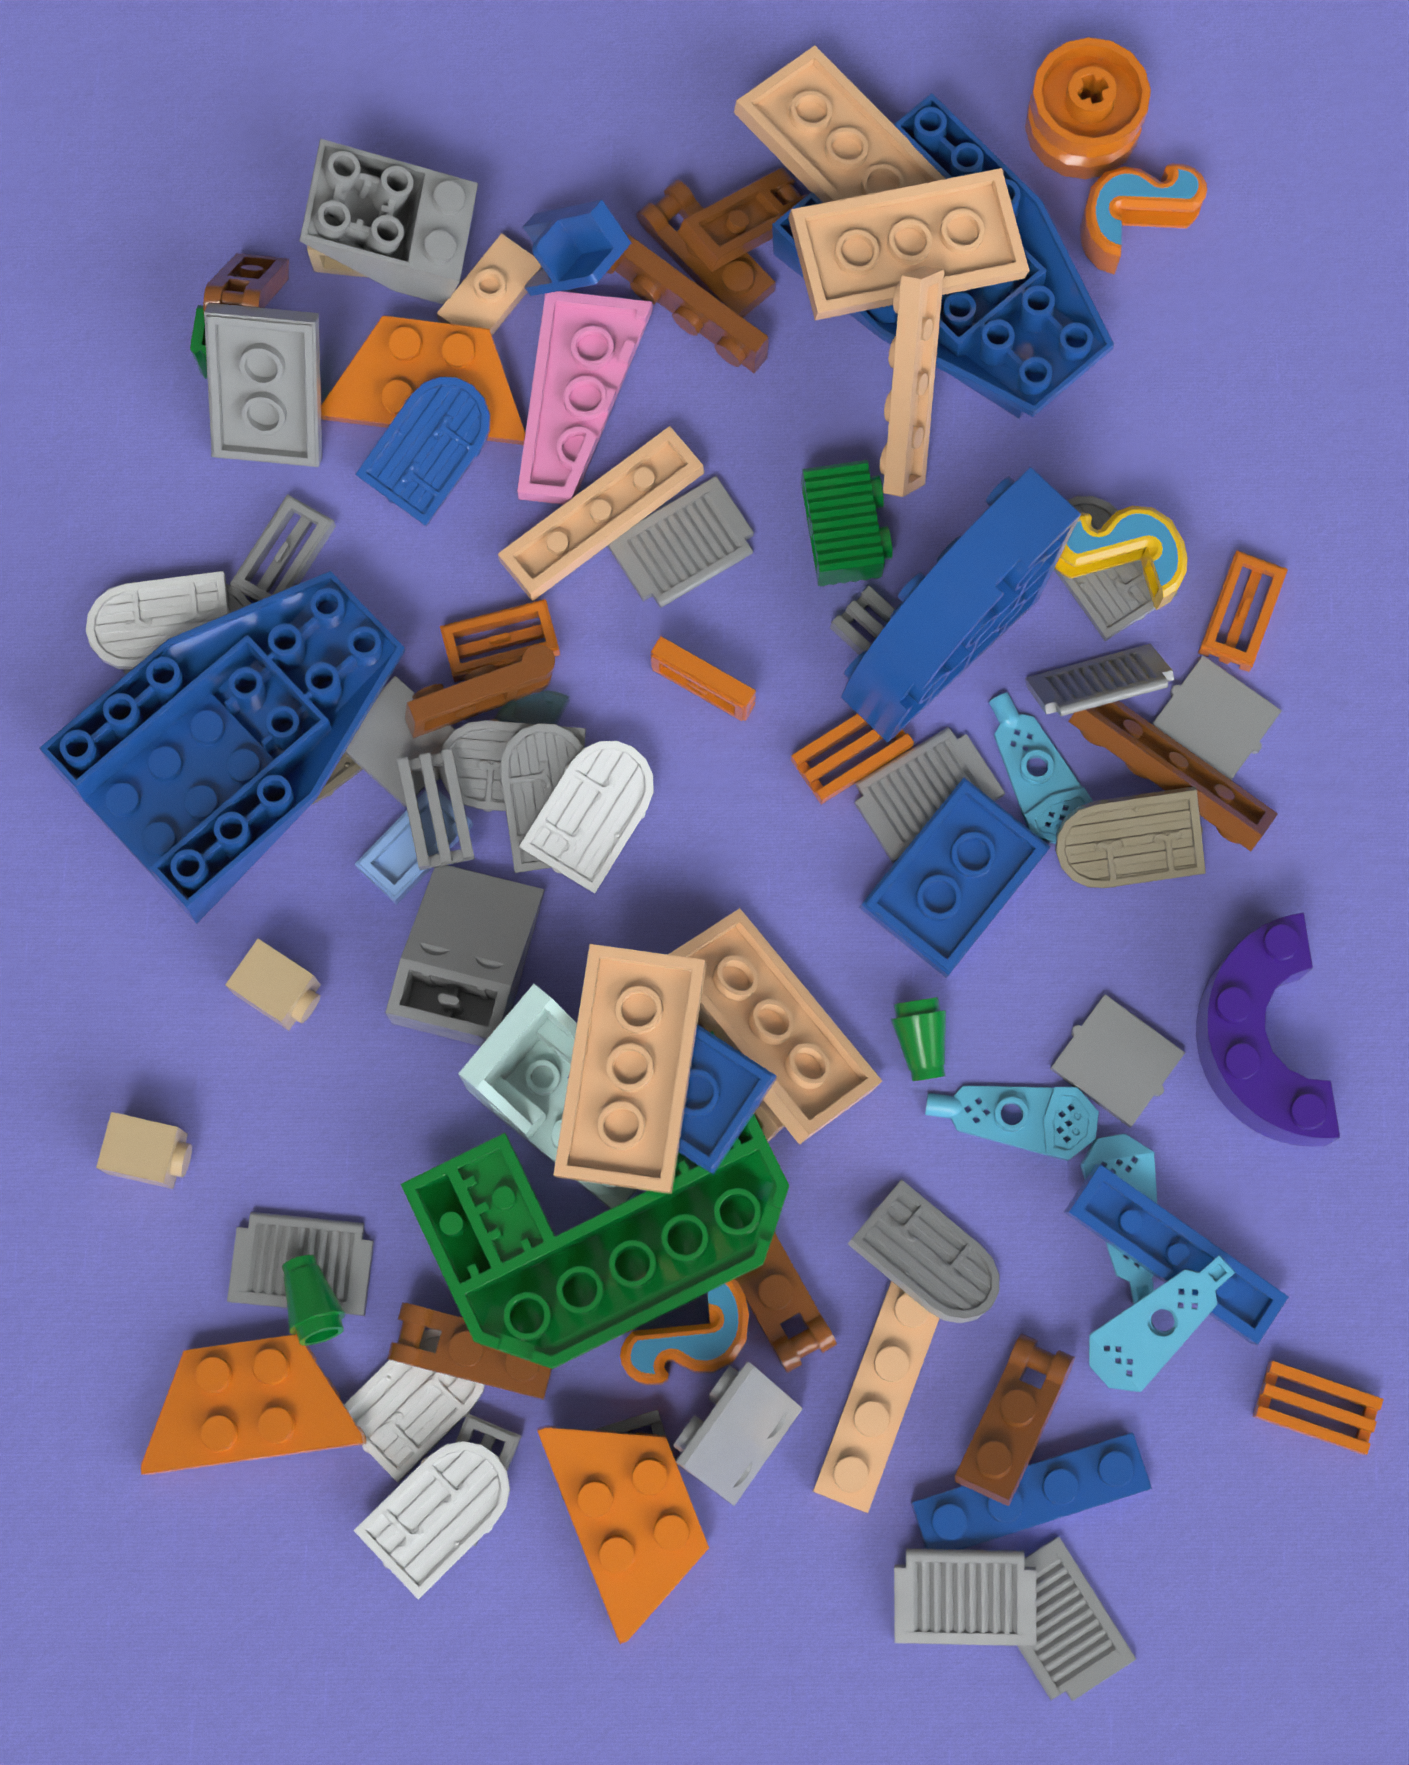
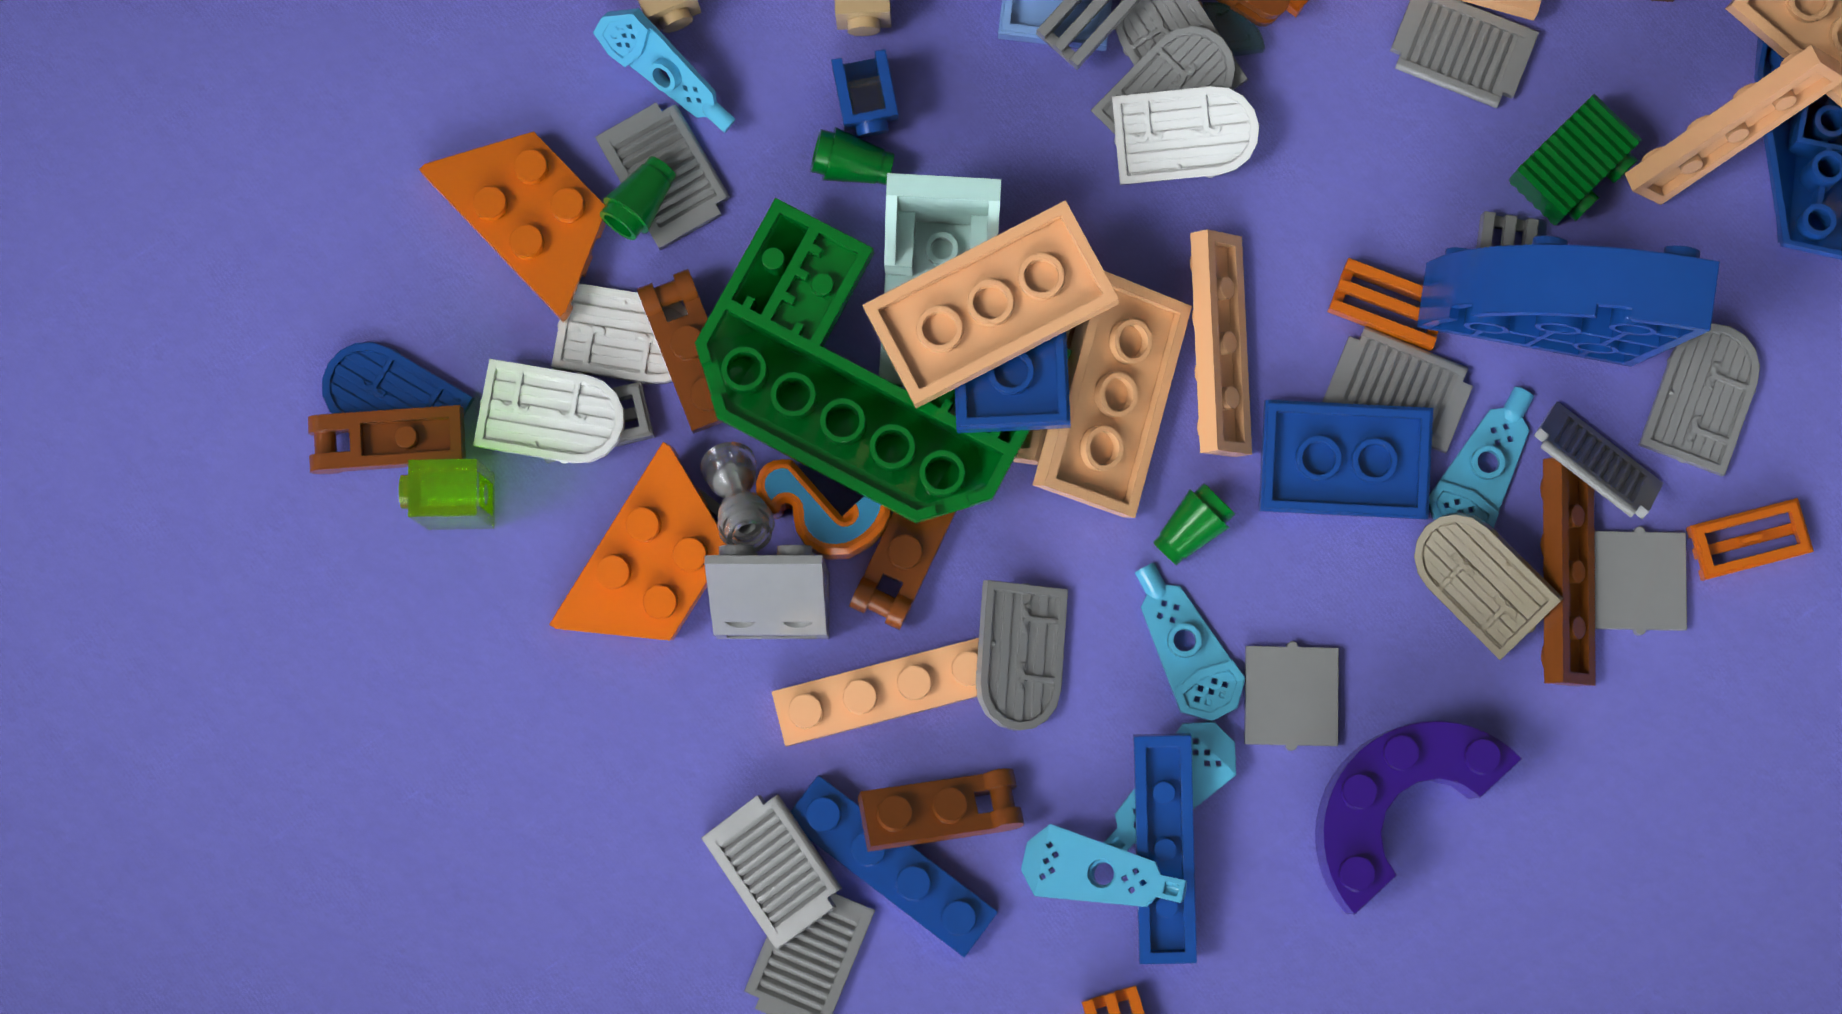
camera: 60 degrees right, 5 degrees up
(175, 1205) = (638, 43): none -> medium azure piece
(325, 1643) = (382, 379): none -> blue window
(358, 1671) = (386, 438): none -> dark orange plate
(365, 1045) = (865, 95): none -> blue window
(408, 1099) = (850, 159): none -> green cone
(447, 1651) = (449, 494): none -> clear neon green brick
(464, 955) = (995, 115): light grey slope -> none
(652, 1406) = (742, 514): none -> clear piece
(702, 679) = (1357, 142): orange tile -> none
(788, 907) = (1220, 343): none -> light nougat plate
(1125, 538) = (1733, 395): yellow animal -> none

